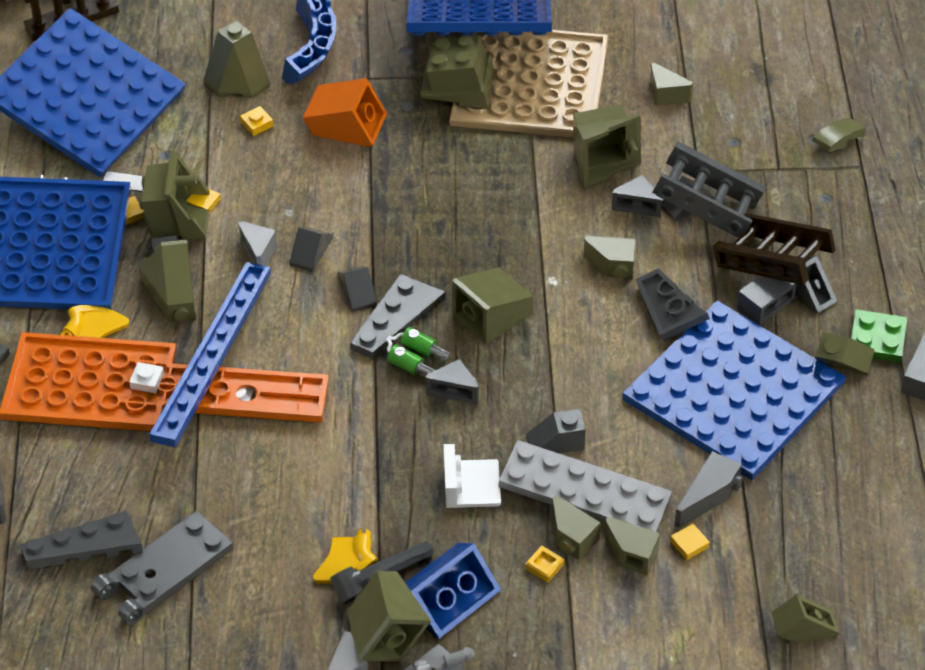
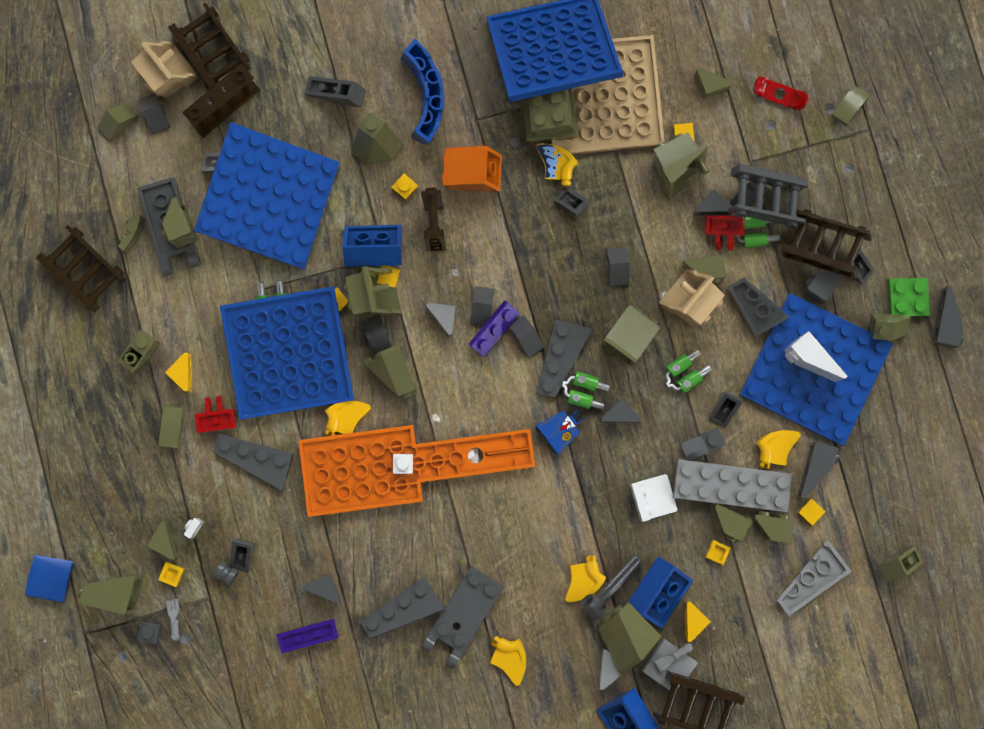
camera: 15 degrees left, 35 degrees up
(136, 181) = (325, 269): white sticker -> none
(205, 19) = (336, 91): none -> dark grey slope
(209, 355) = (443, 432): plate -> none
(210, 166) = (372, 245): none -> blue slope
(211, 629) = (510, 657): none -> yellow arm
(276, 133) = (434, 236): none -> dark brown fence
(317, 268) = (494, 328): none -> dark purple plate
(367, 385) = (560, 430): none -> blue torso
(453, 127) = (558, 163): none -> arm
(462, 169) = (572, 203): none -> dark grey slope
(489, 631) = (694, 621): none -> yellow slope
(498, 240) = (618, 266): none -> dark grey slope
(557, 367) = (691, 379): none -> bright green piece
(586, 276) = (692, 298): none -> tan piece
(600, 399) = (725, 408): none -> dark grey slope
(648, 217) = (727, 226): none -> red hinge
(659, 460) = (776, 446): none -> yellow arm
(682, 615) = (816, 577): none -> light grey wing
(686, 232) = (756, 239): none -> bright green piece
(727, 353) = (810, 355): none -> white slope
(737, 105) = (793, 98): none -> red piece

